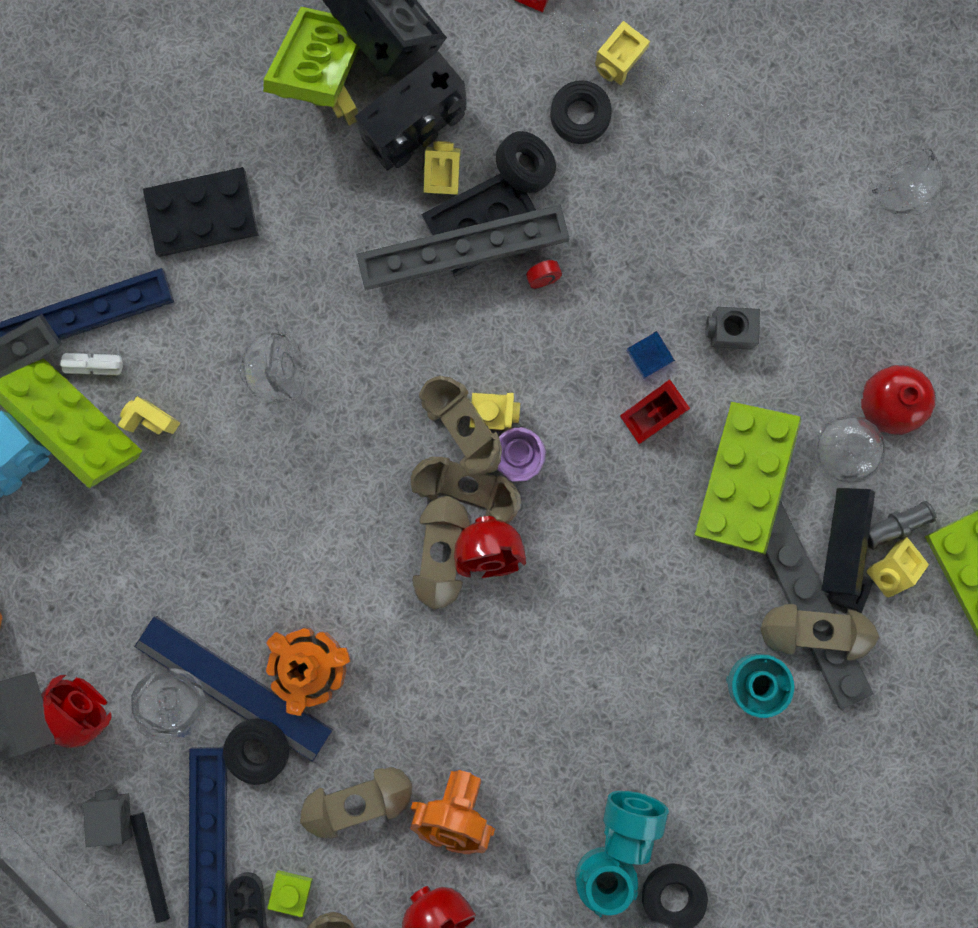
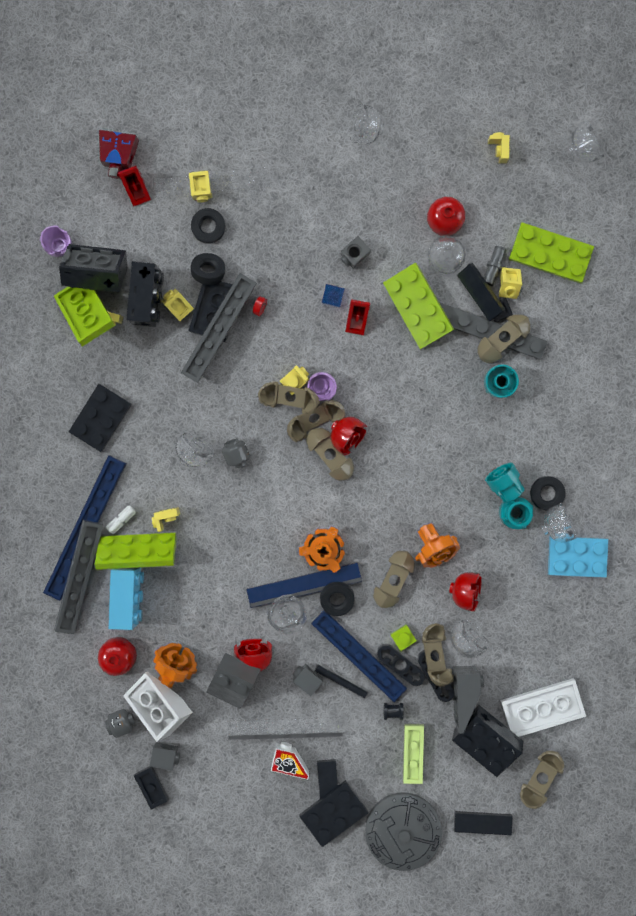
camera: 45 degrees left, 5 degrees up
(321, 427) = (235, 453): none -> dark grey head

